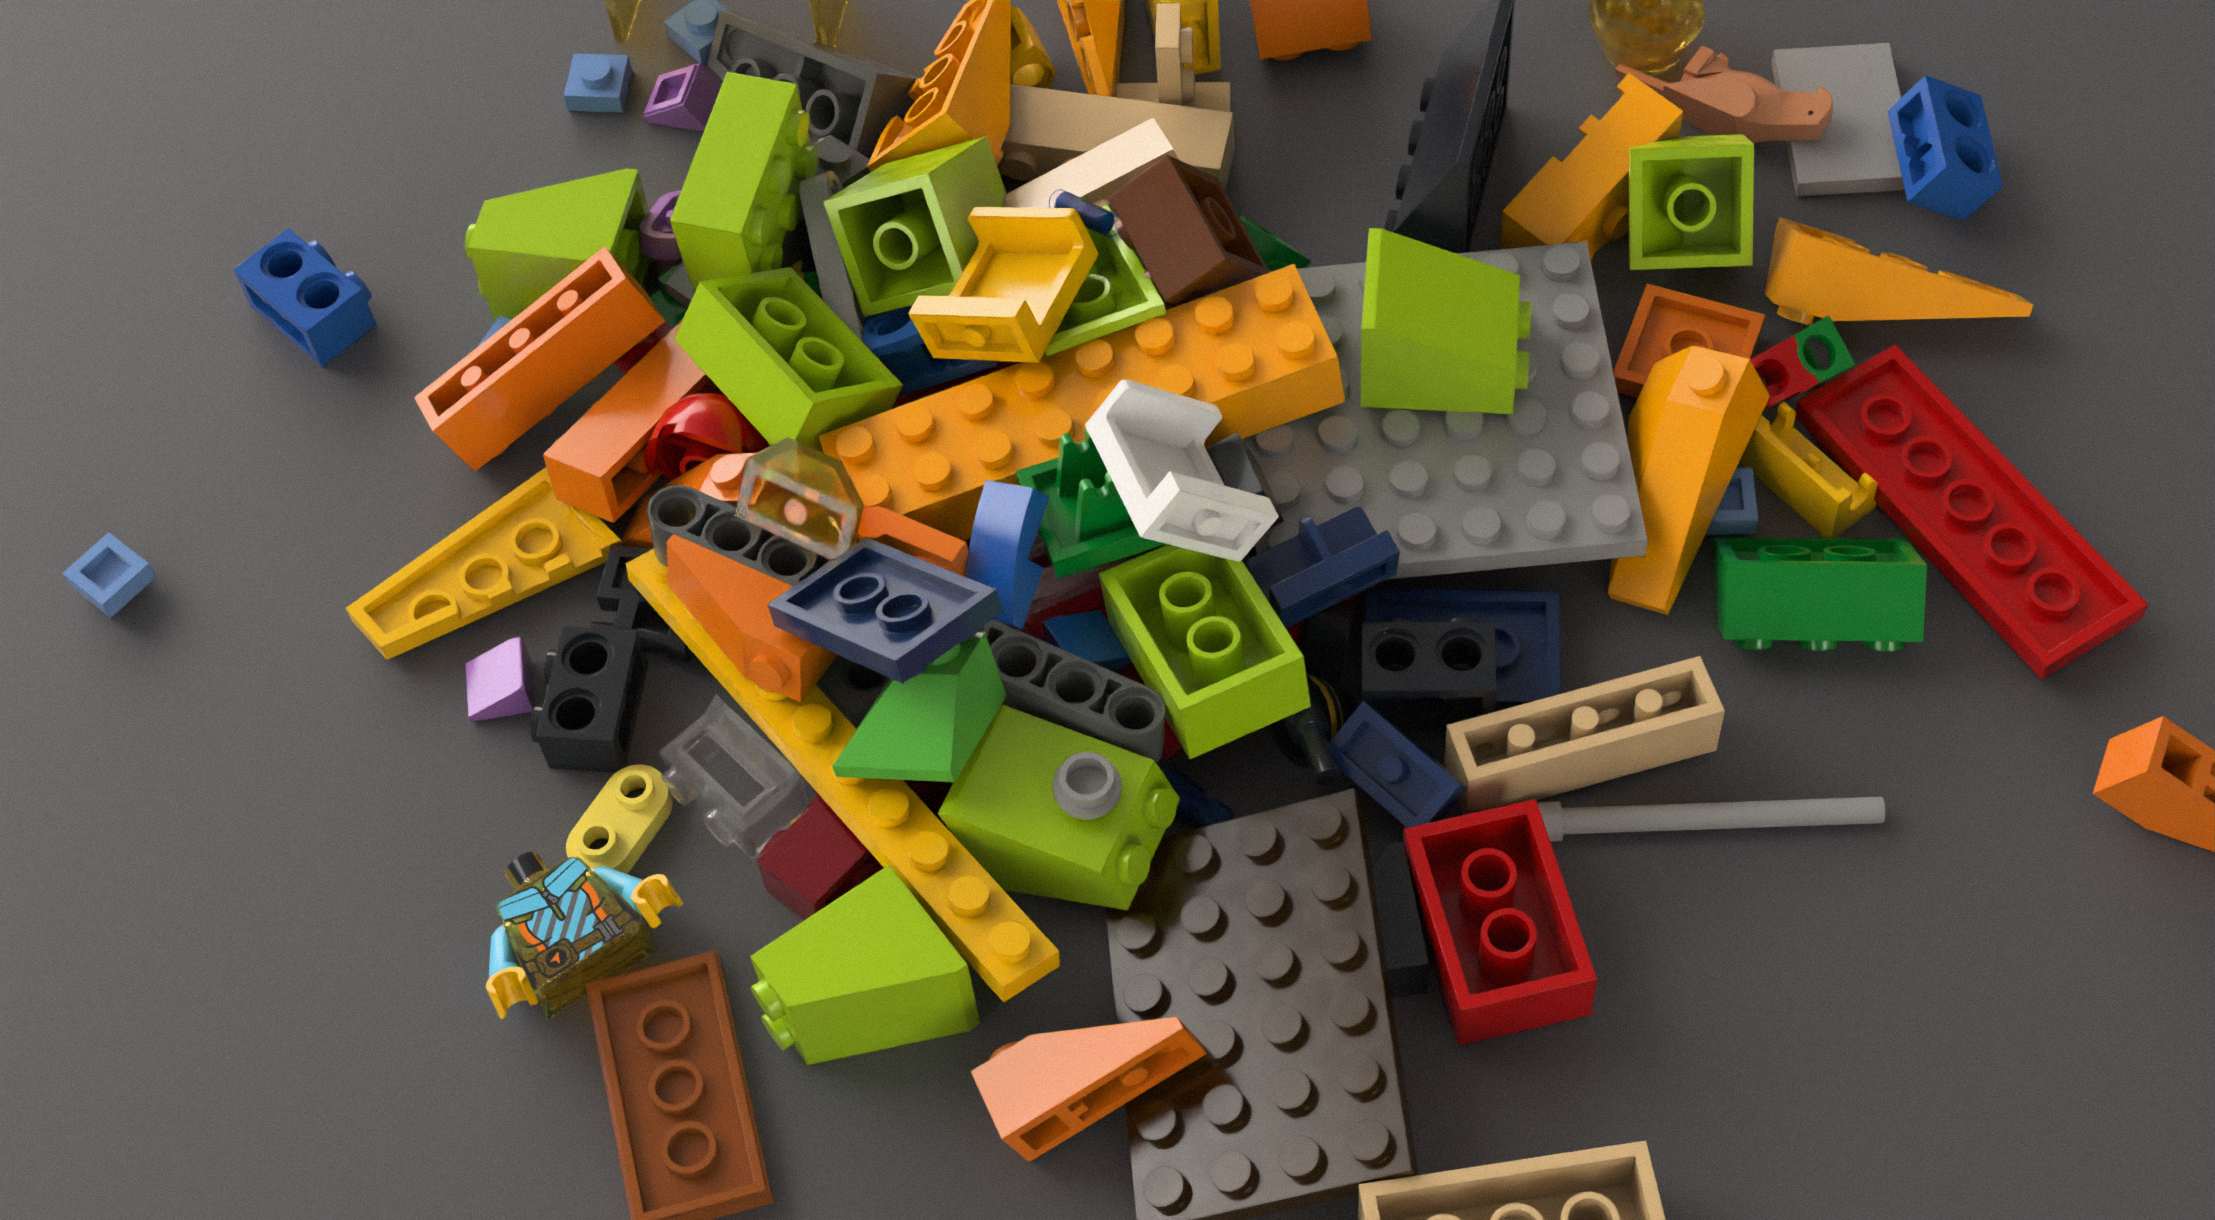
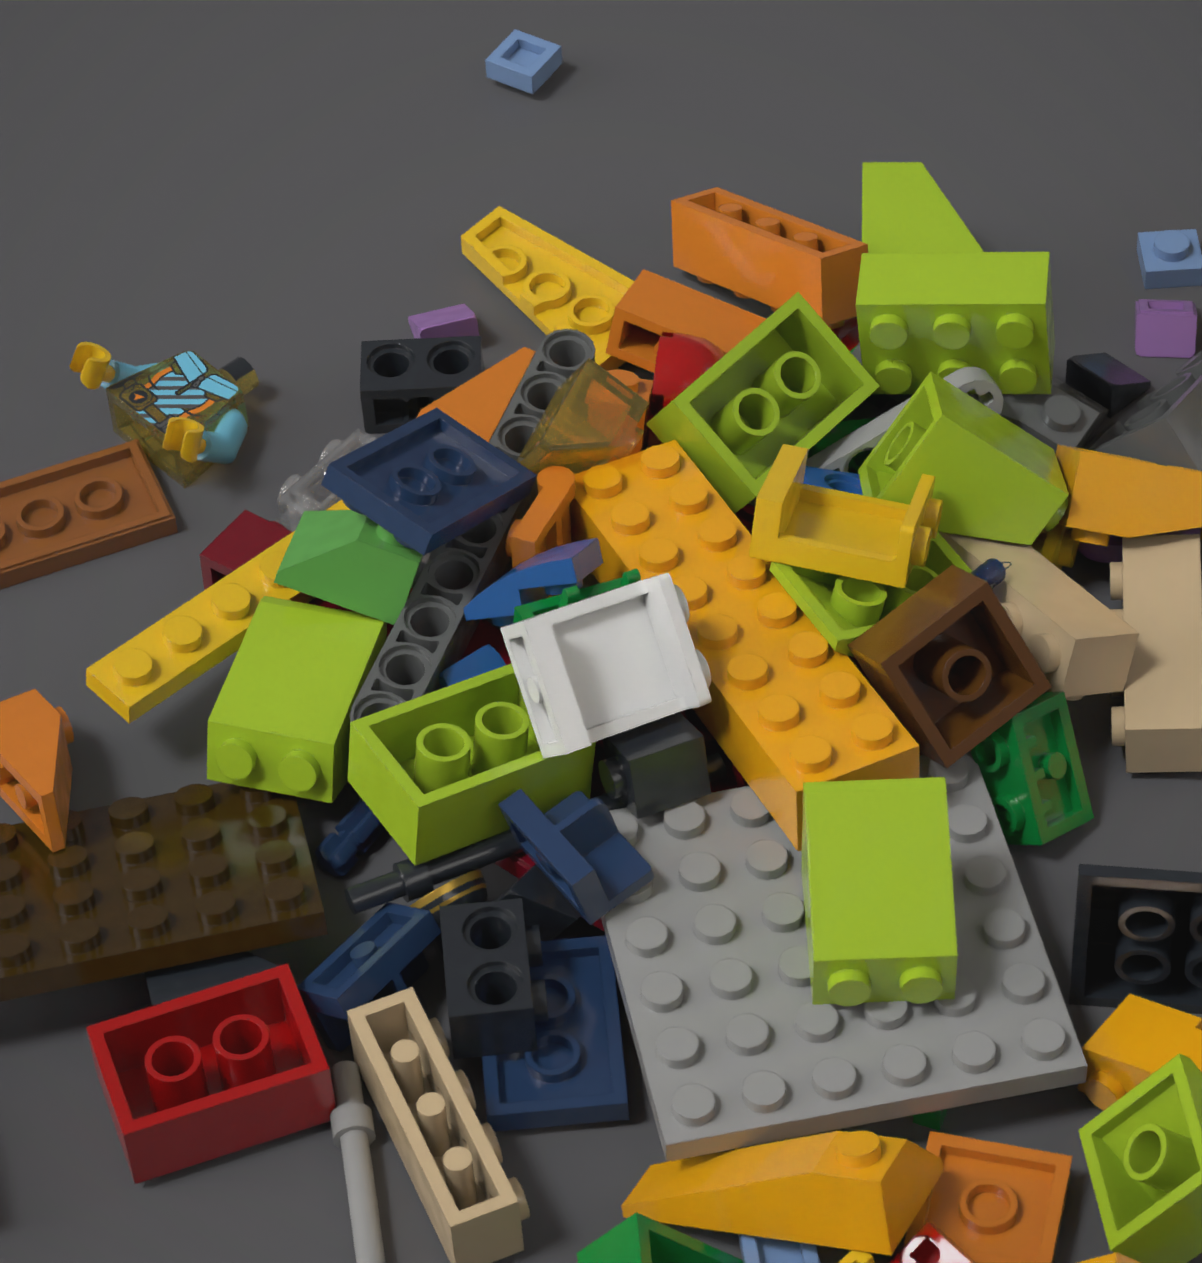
camera: 80 degrees right, 10 degrees down
(306, 296) = (845, 109): blue brick -> none
(622, 820) = (295, 430): light yellow plate -> none
(863, 976) = (122, 572): lime slope -> none
(1087, 786) = (287, 686): light grey plate -> none

